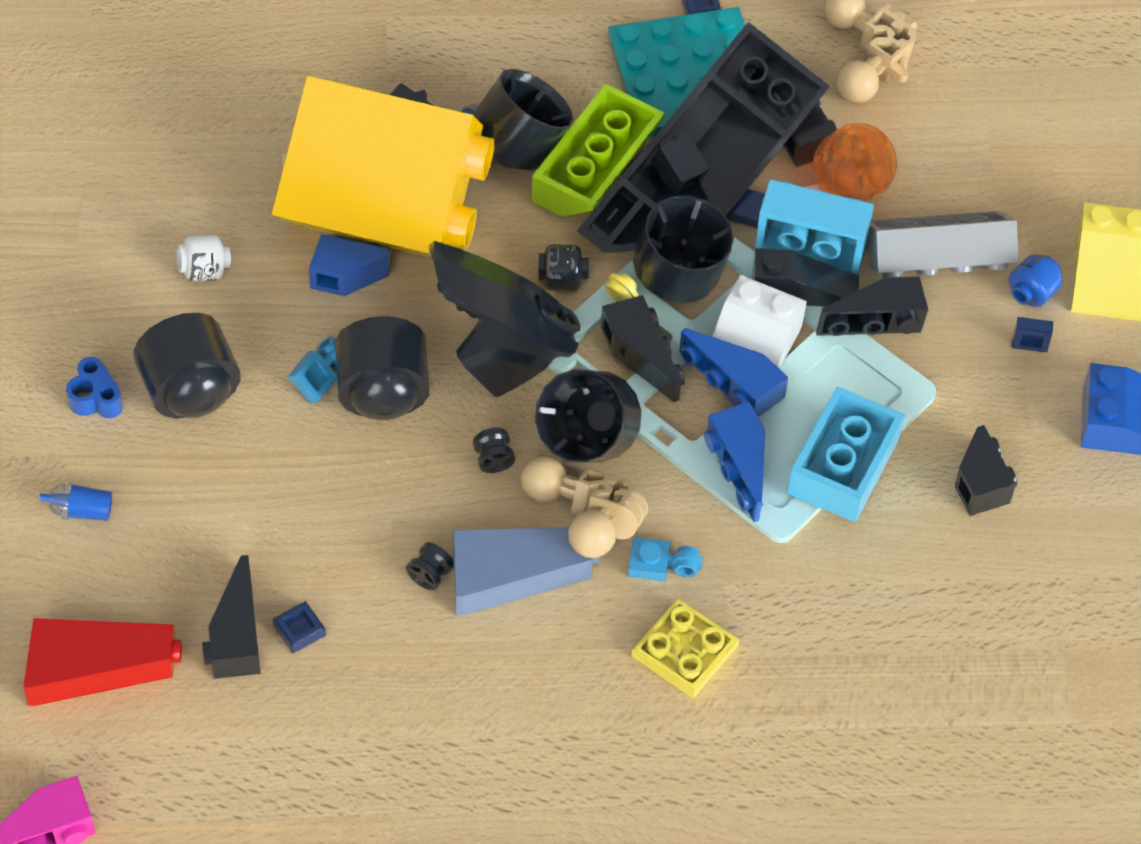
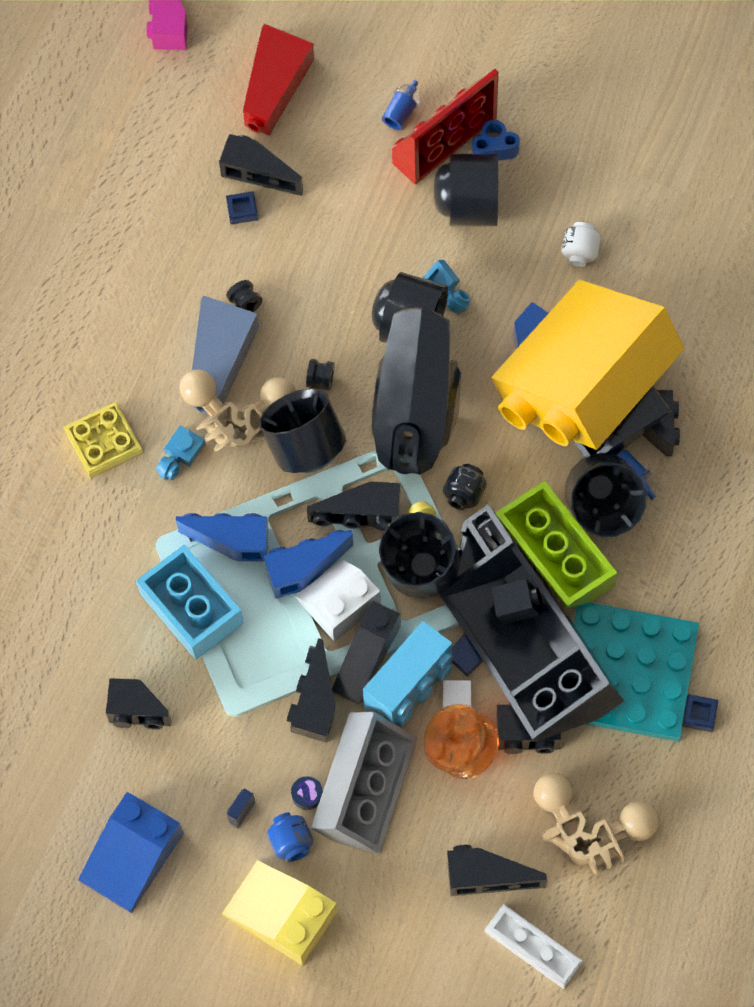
camera: 120 degrees right, 10 degrees up
(103, 422) = (447, 129): none -> red slope
(971, 115) = (484, 872): none -> black slope
(977, 291) = (306, 792): none -> dark blue tile
(1010, 60) = (533, 946): none -> white tile

